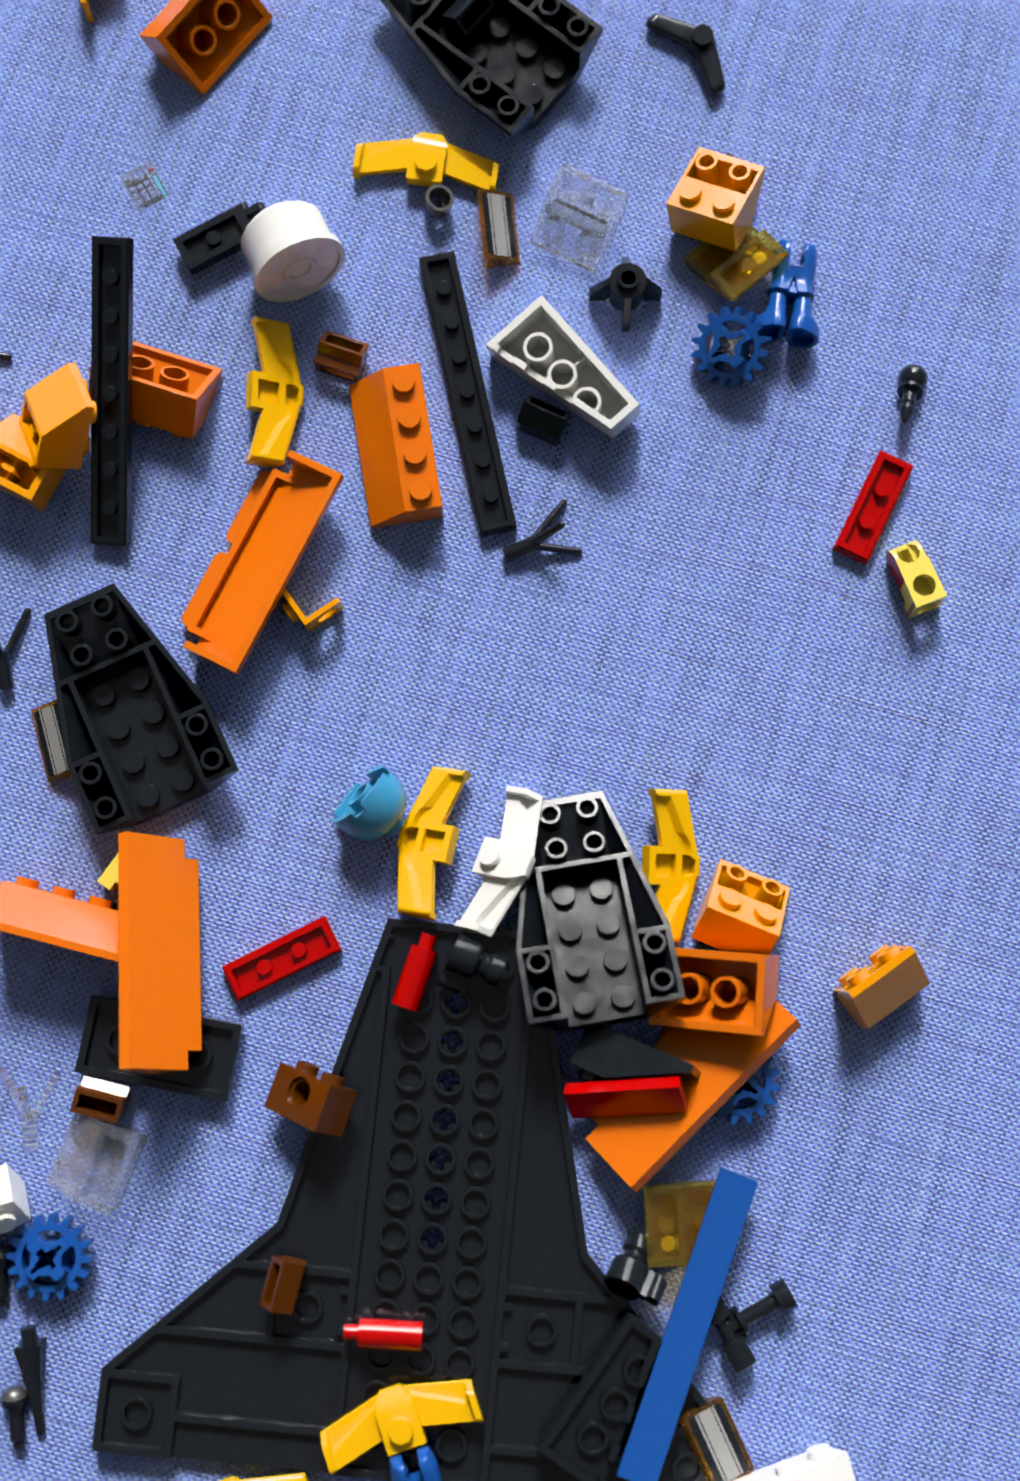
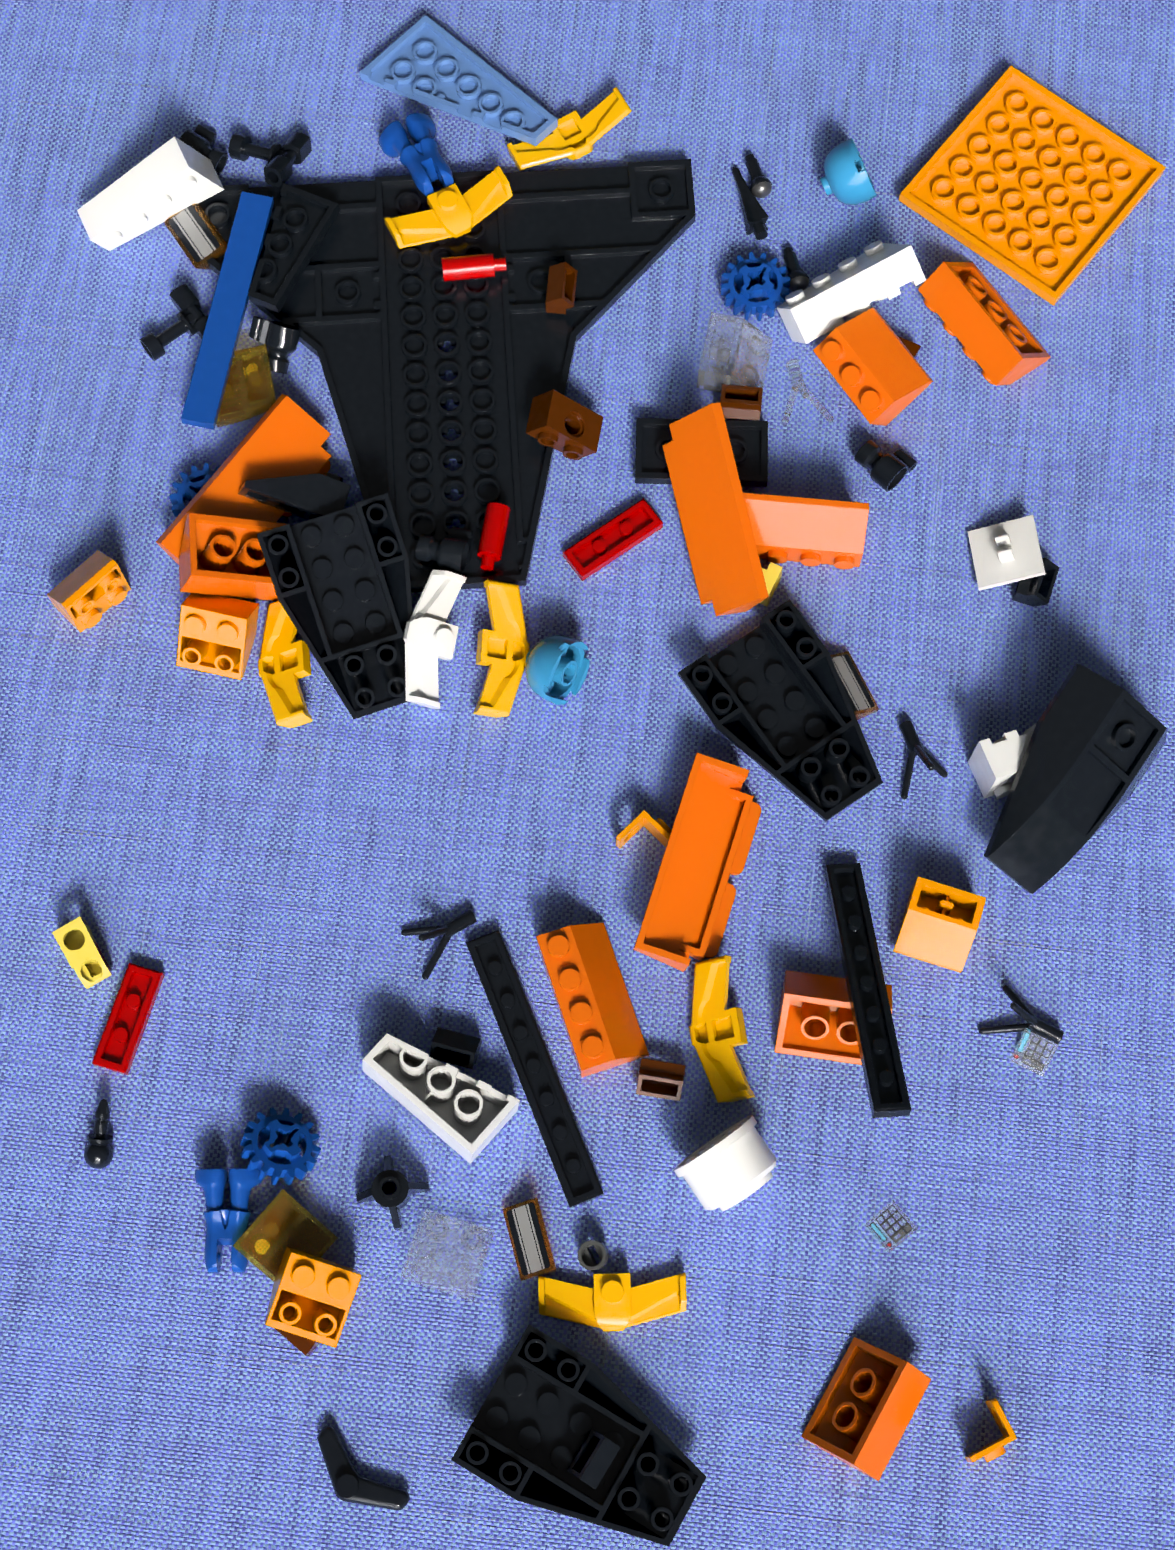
camera: 175 degrees right, 10 degrees down
(58, 419) = (911, 956): light orange slope -> none
(216, 237) = (801, 1182): black hinge -> none
(626, 1097) = (299, 464): red tile -> none

